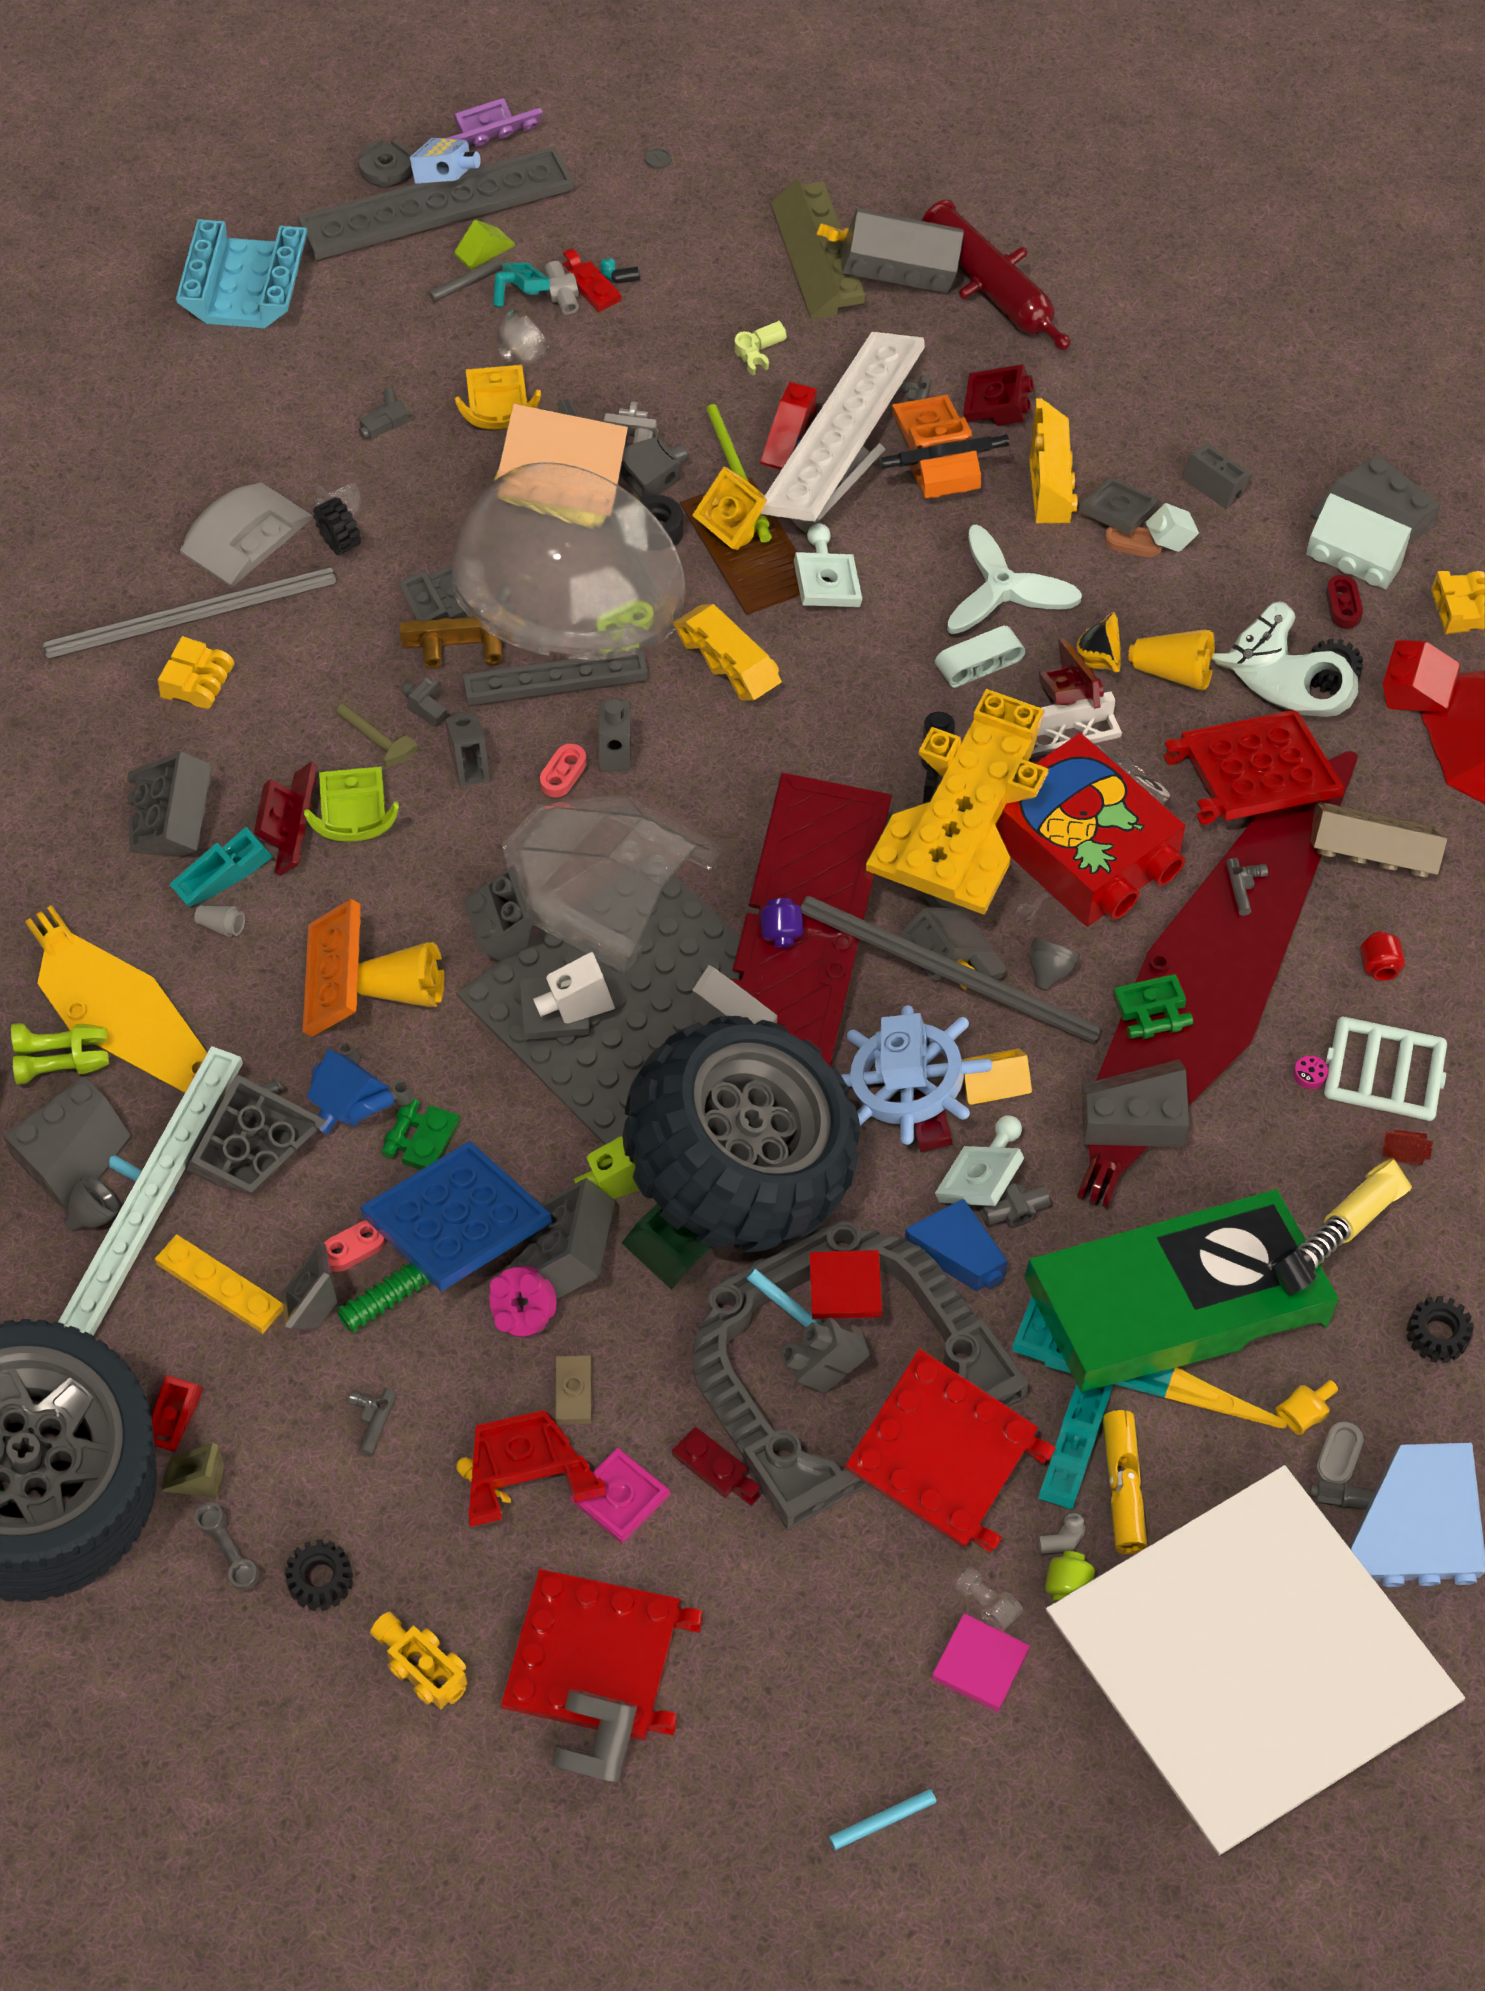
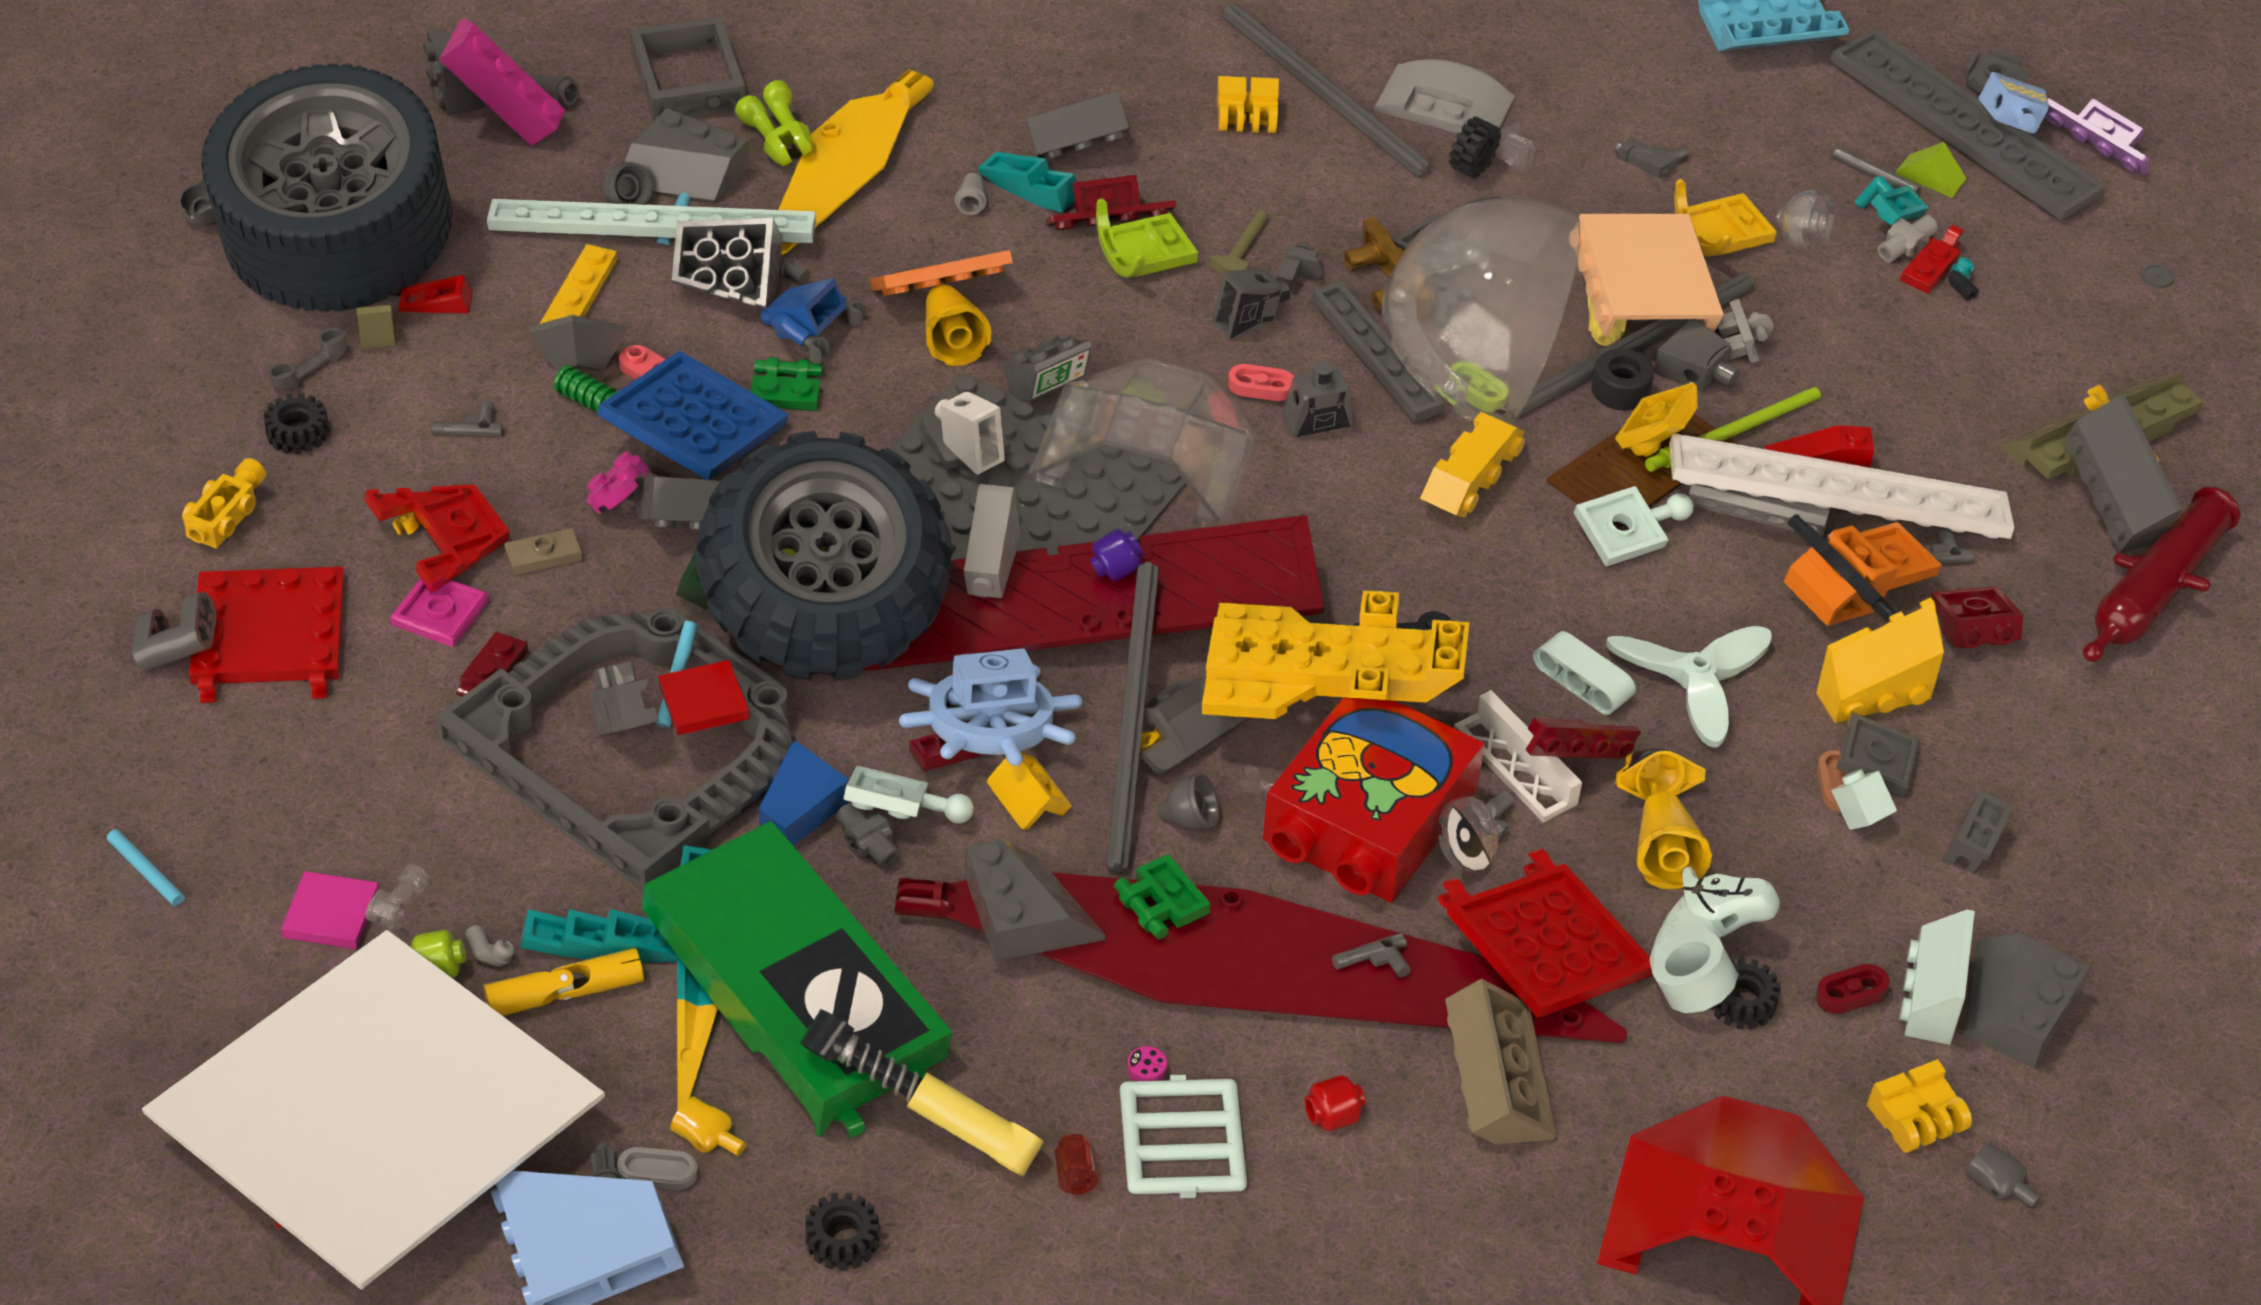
camera: 70 degrees right, 10 degrees down
(748, 345) = (1923, 399): yellowish green bar -> none
(944, 1450) = (544, 818): red plate -> none
(1419, 677) = (1763, 1069): red slope -> none

